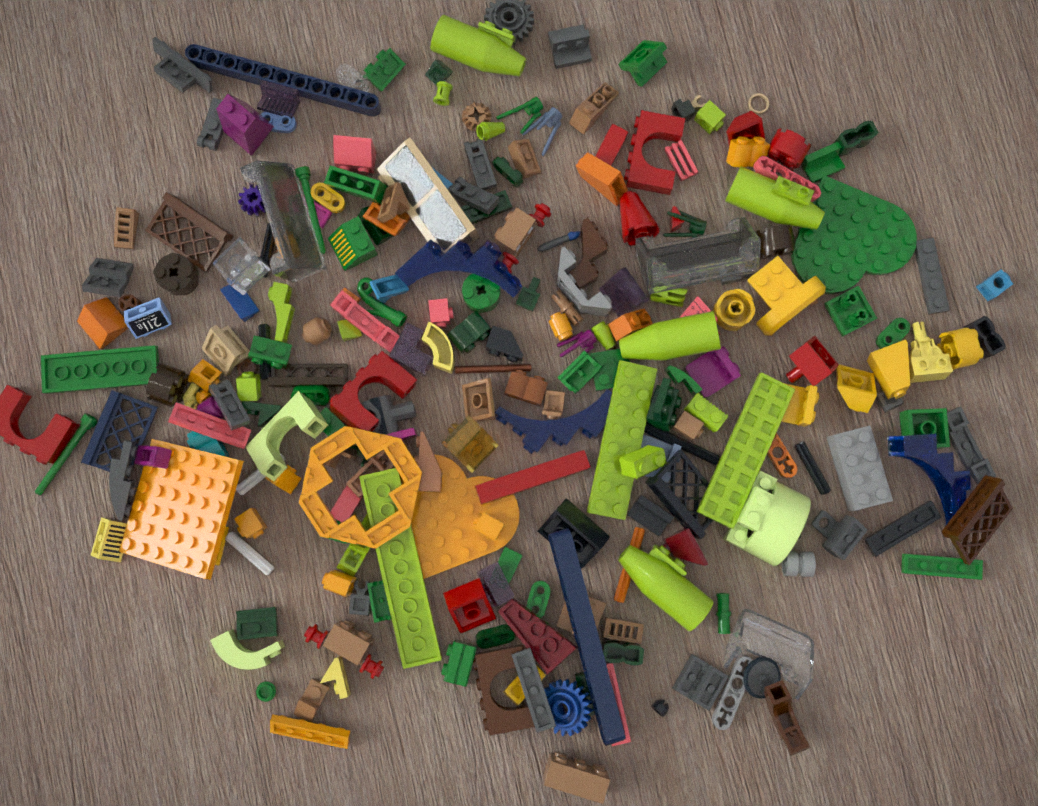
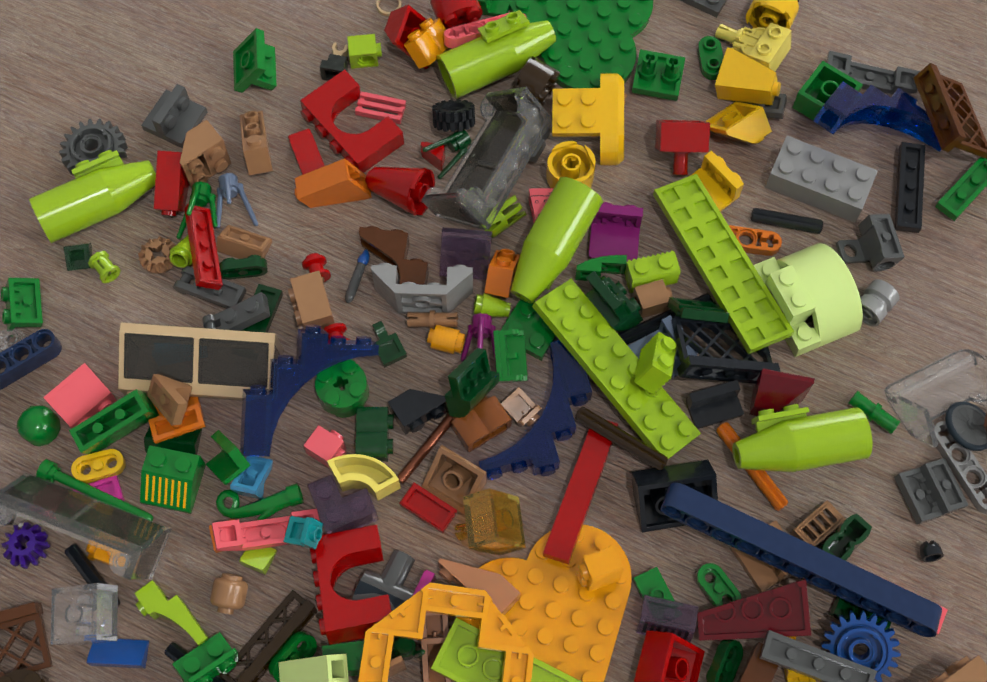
camera: 50 degrees left, 15 degrees down
(322, 144) = (38, 425): none -> green hair
(378, 343) = (303, 532): none -> teal bracket
(385, 266) = (229, 461): none -> green panel
(453, 399) = (428, 507): none -> red tile
(499, 139) = (203, 248): none -> red tile
(526, 83) = (170, 184): none -> red slope
(540, 364) = (470, 383): none -> dark green brick
(556, 85) = (203, 154): none -> medium nougat slope
(581, 476) = (621, 438): none -> dark brown axle
(700, 460) = (698, 310): none -> dark green plate
(710, 209) = (453, 115): none -> black tyre

